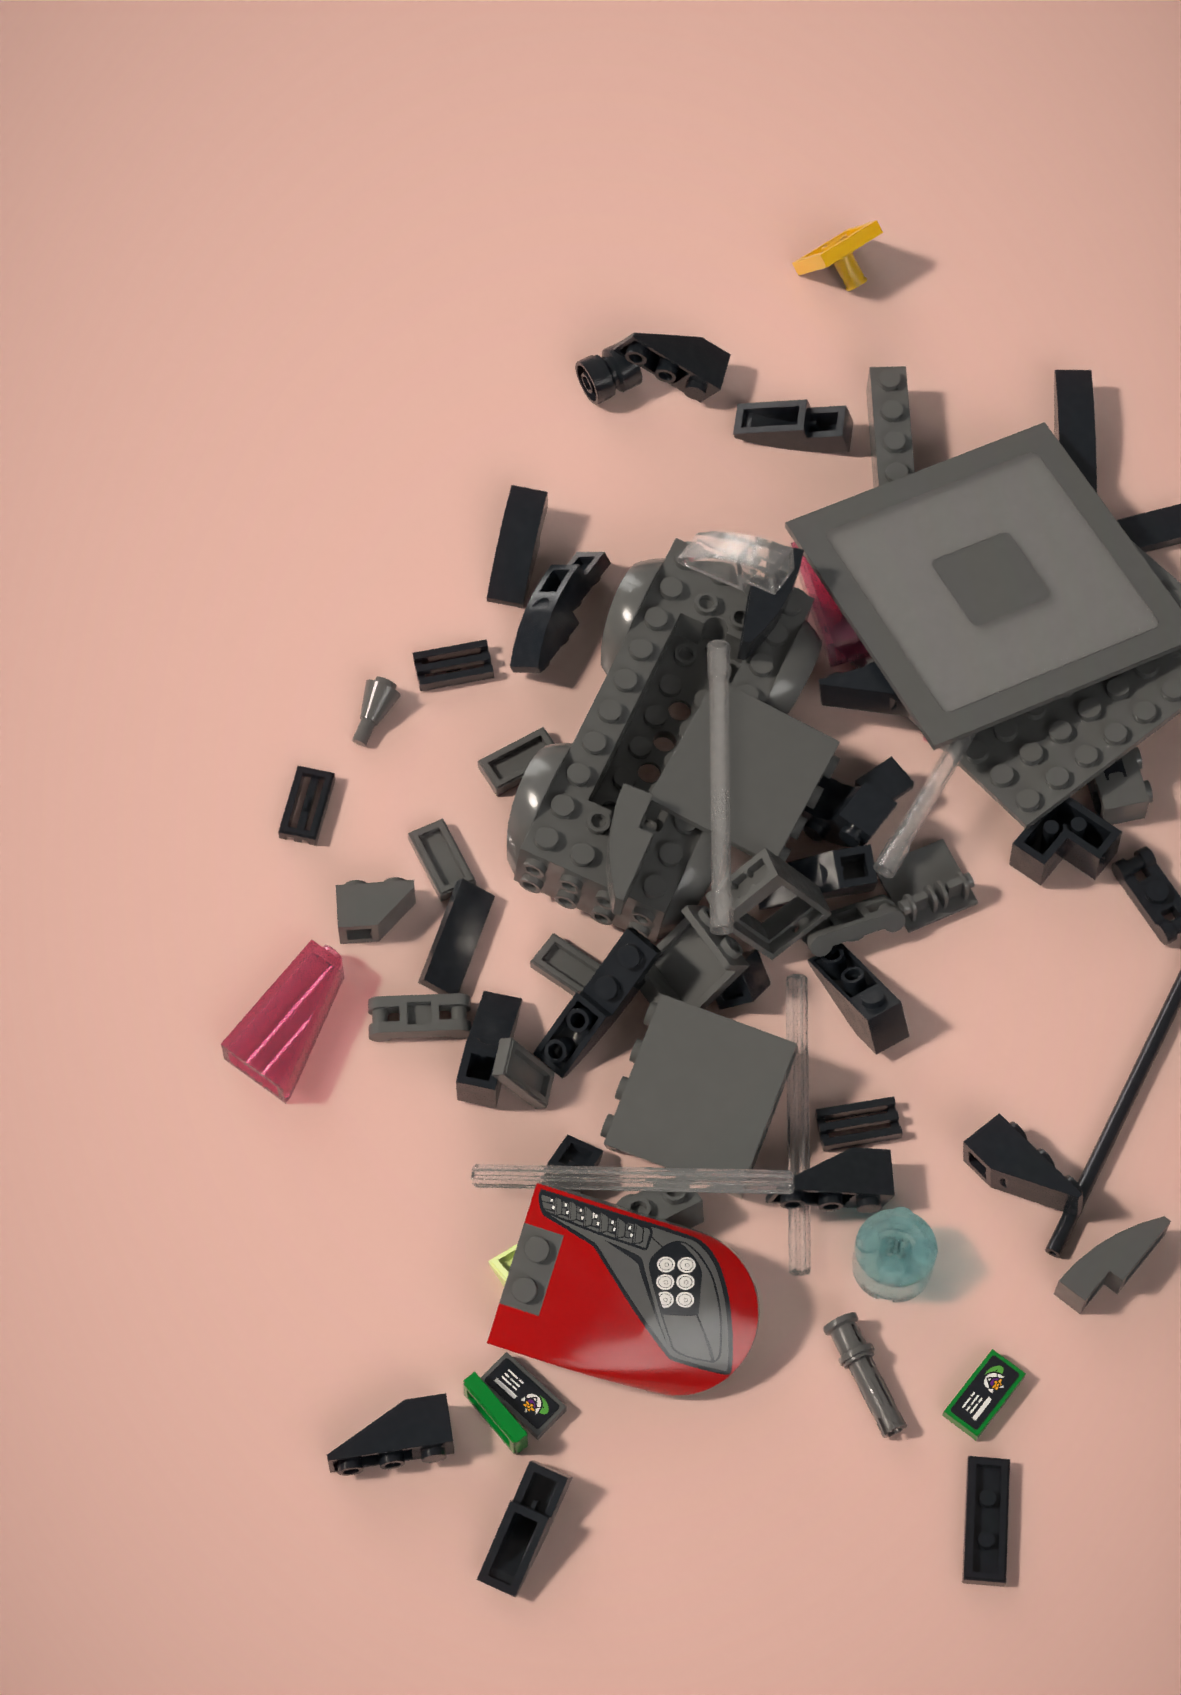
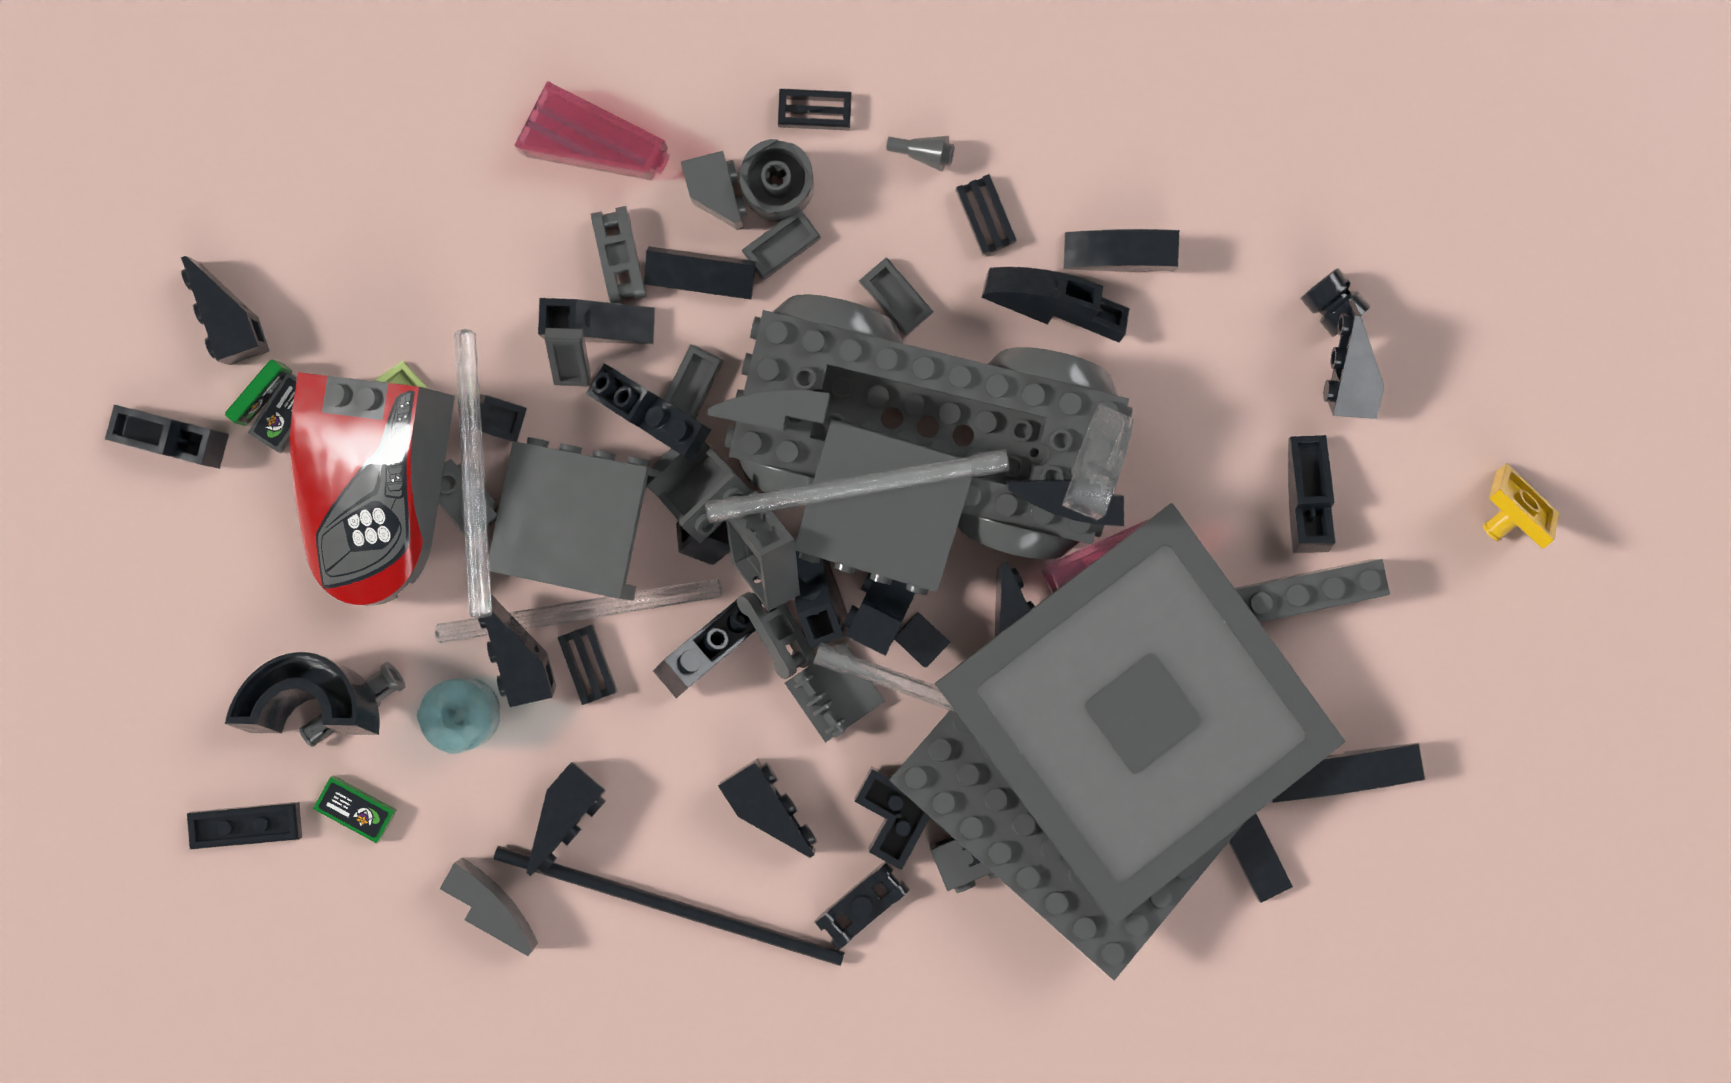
camera: 75 degrees right, 25 degrees up
(377, 841) = (786, 162): none -> dark grey brick
(829, 1398) = (294, 678): none -> black brick
(1031, 972) = (759, 803): none -> black slope

